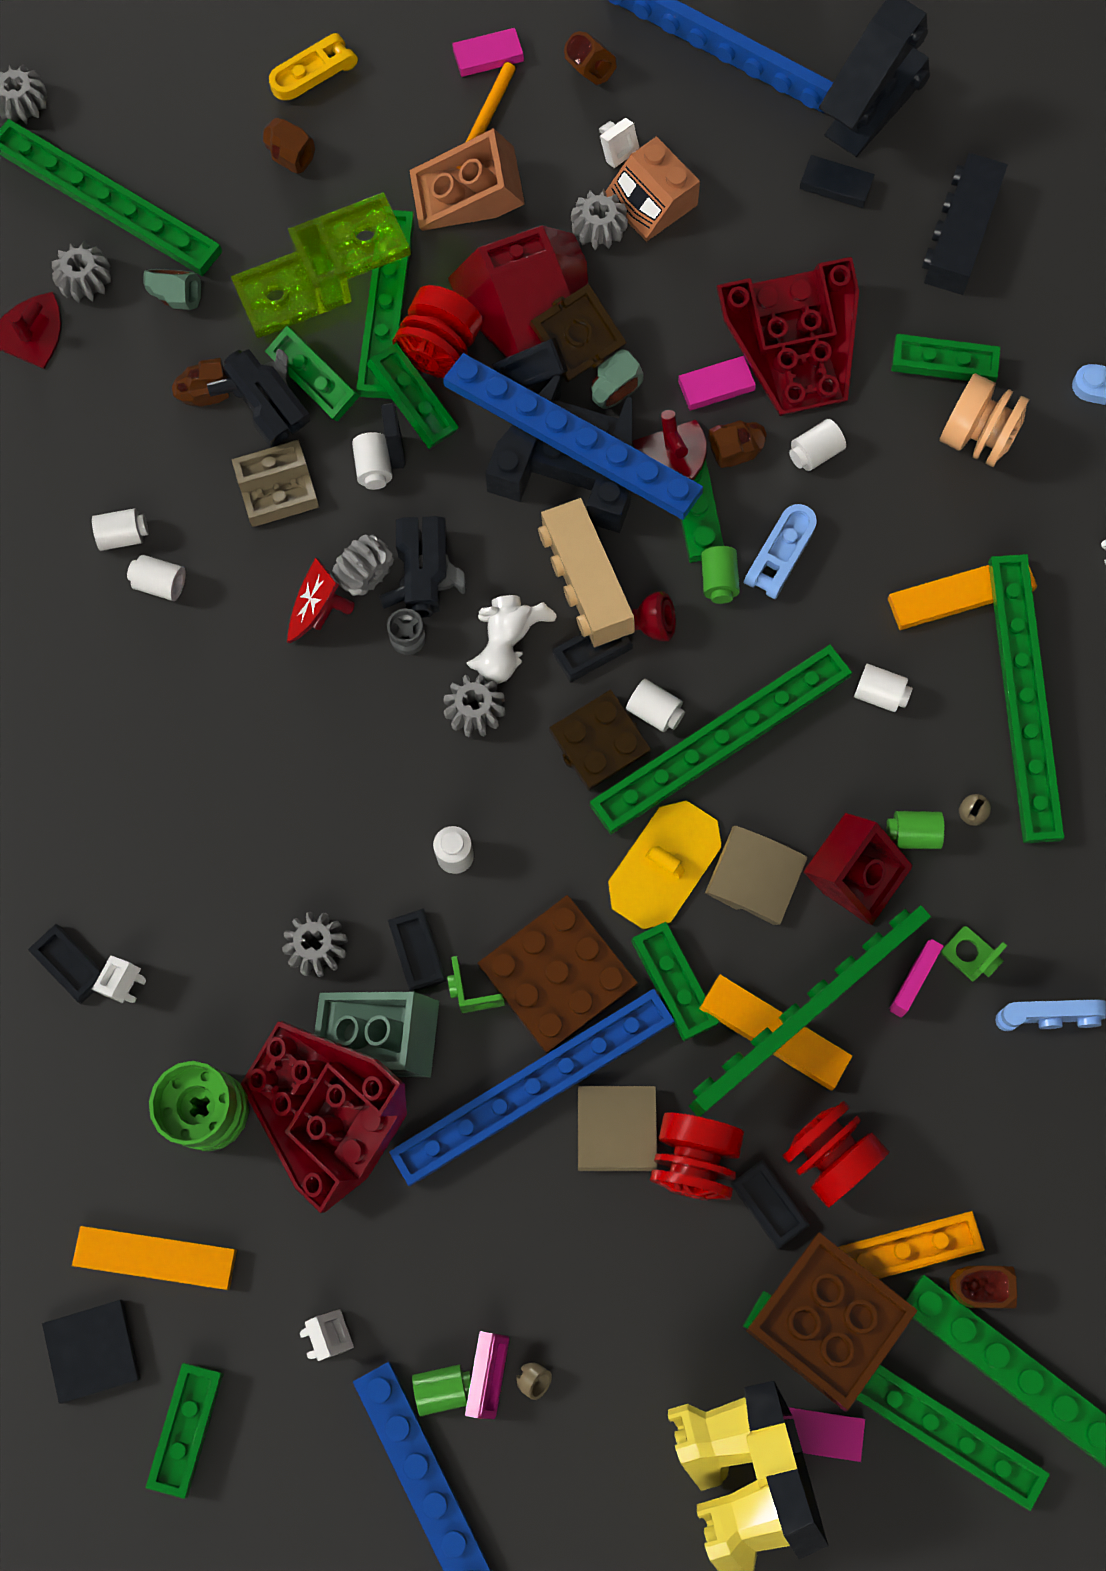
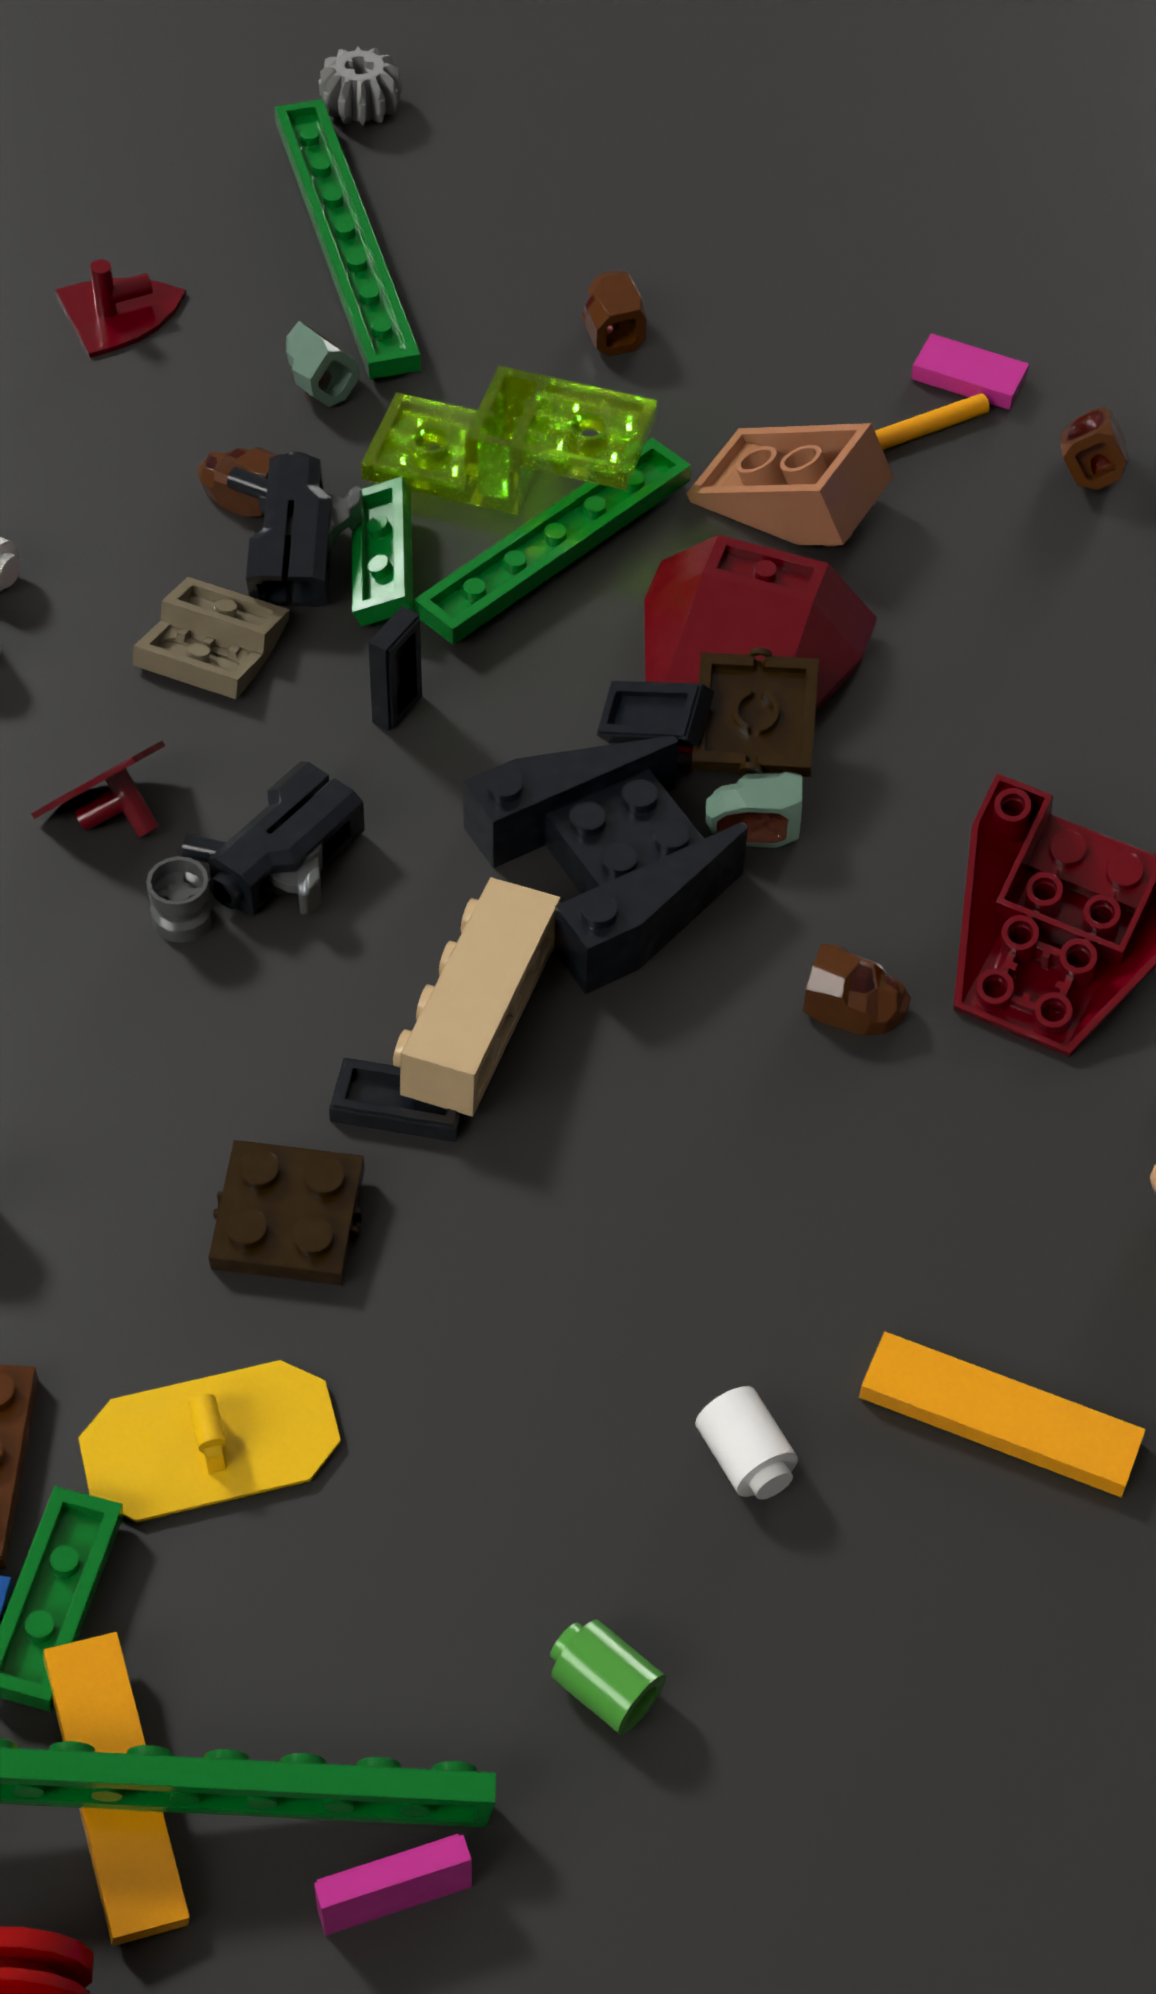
camera: 35 degrees right, 20 degrees down
(81, 272) = (233, 285): light grey gear -> none
(311, 67) = (729, 257): yellow plate -> none
(363, 565) = (205, 782): light grey gear -> none
(372, 460) = (343, 690): white brick -> none
(412, 395) = (473, 648): green plate -> none
(438, 329) = (576, 596): red wheel -> none
(462, 712) = (168, 1045): light grey gear -> none
(506, 626) = (309, 983): white animal -> none
(573, 436) = (620, 820): blue plate -> none
(599, 219) = (925, 621): light grey gear -> none
(618, 141) = (1040, 557): white tile -> none
(654, 188) = (1034, 635): nougat slope -> none
(655, 706) = (402, 1222): white brick -> none
(656, 617) = (522, 1117): dark red brick -> none
(676, 446) = (755, 942): dark red shield -> none
(701, 524) = (717, 1037): green plate -> none
(716, 383) = (899, 908): dark pink tile -> none
(720, 574) = (663, 1128): bright green brick -> none
(720, 739) = (452, 1334): green plate -> none
(756, 875) = (314, 1551): dark tan slope -> none
(782, 549) = (782, 1165): light blue plate -> none
(817, 445) = (962, 1071): white brick -> none
(859, 867) = (468, 1660): dark red slope -> none
(967, 805) = (736, 1736): dark tan hinge -> none
(986, 960) = (520, 1950): bright green bracket -> none
(1025, 699) = (946, 1630): green plate -> none

